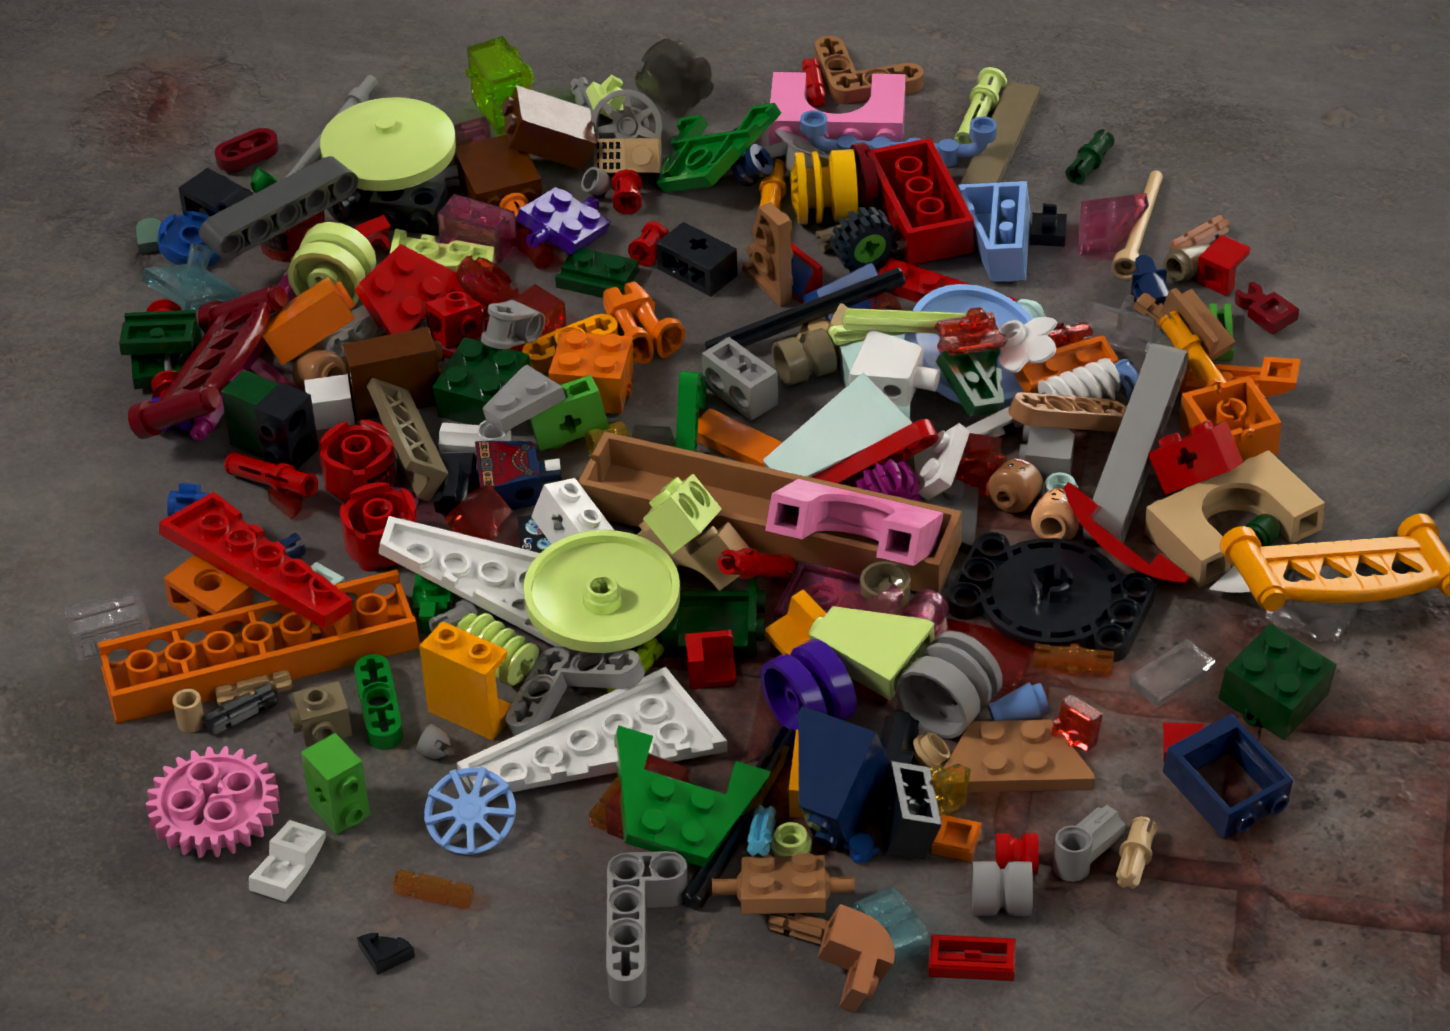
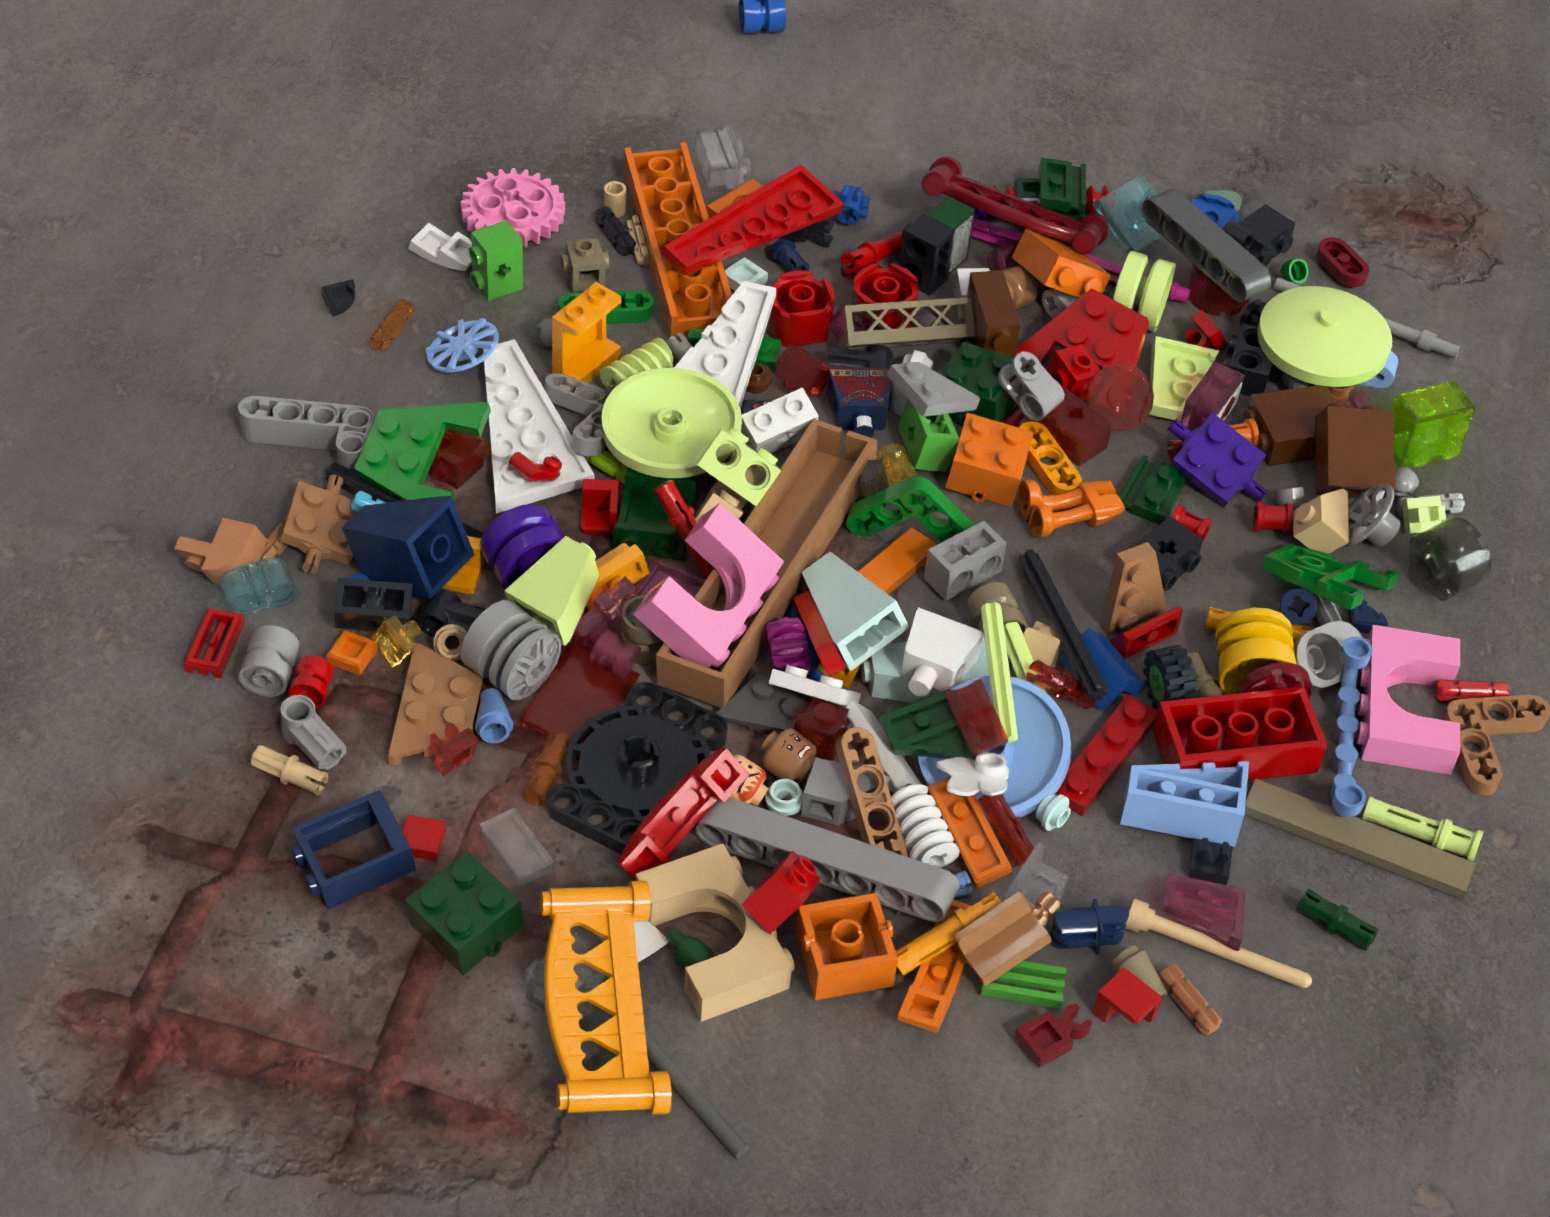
camera: 90 degrees right, 5 degrees up
(679, 705) = (536, 472): none -> red arm

